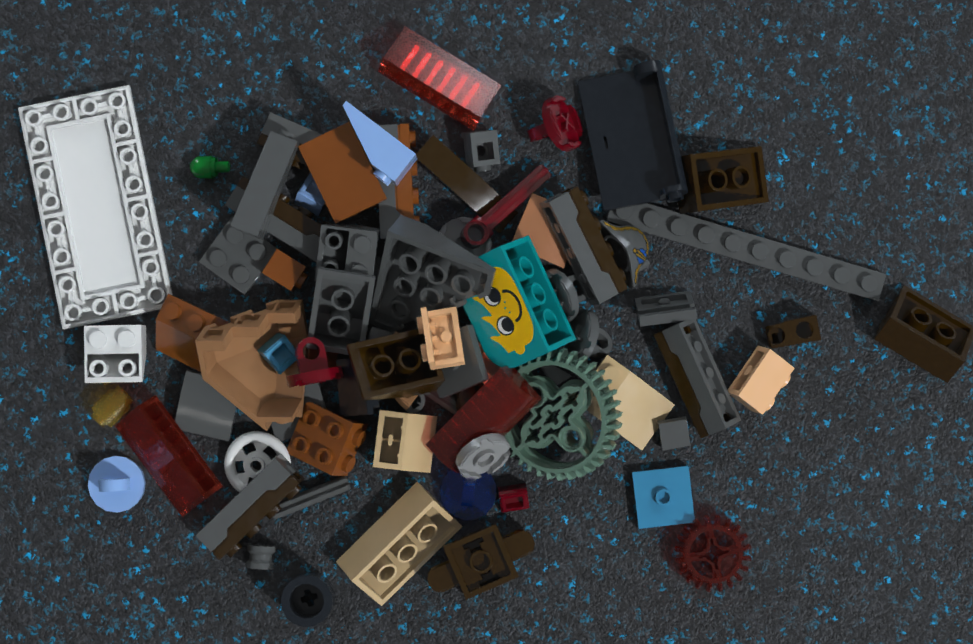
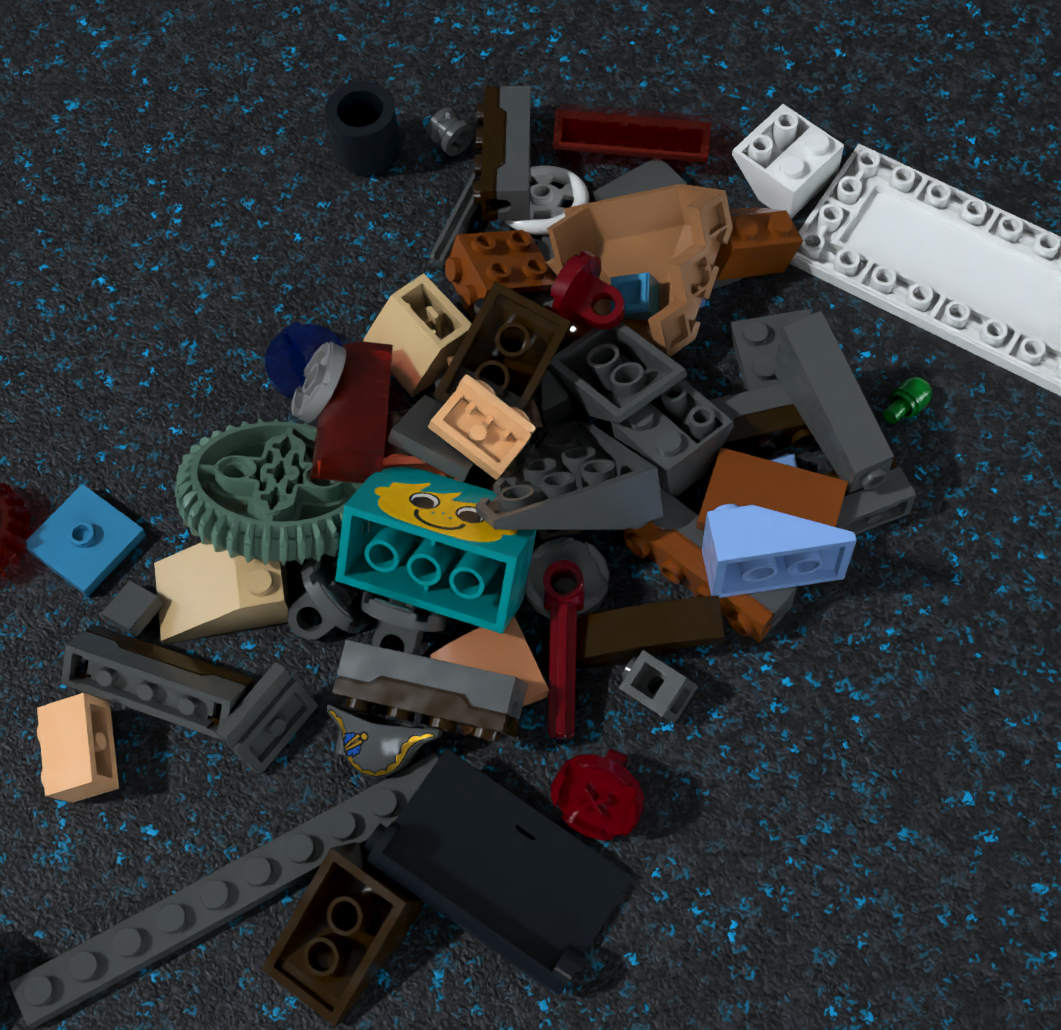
camera: 140 degrees right, 25 degrees down
(111, 406) = (733, 120): clear yellow brick -> none
(116, 484) = (653, 75): light blue tile -> none
(286, 271) = (718, 372): dark orange brick -> none
(398, 544) = (327, 251): tan slope -> none
(439, 78) = (787, 716): clear red brick -> none
(481, 560) = (205, 303): dark brown brick -> none
(513, 497) = (254, 398): dark red slope -> none
(793, 332) = (85, 844): dark brown leg -> none

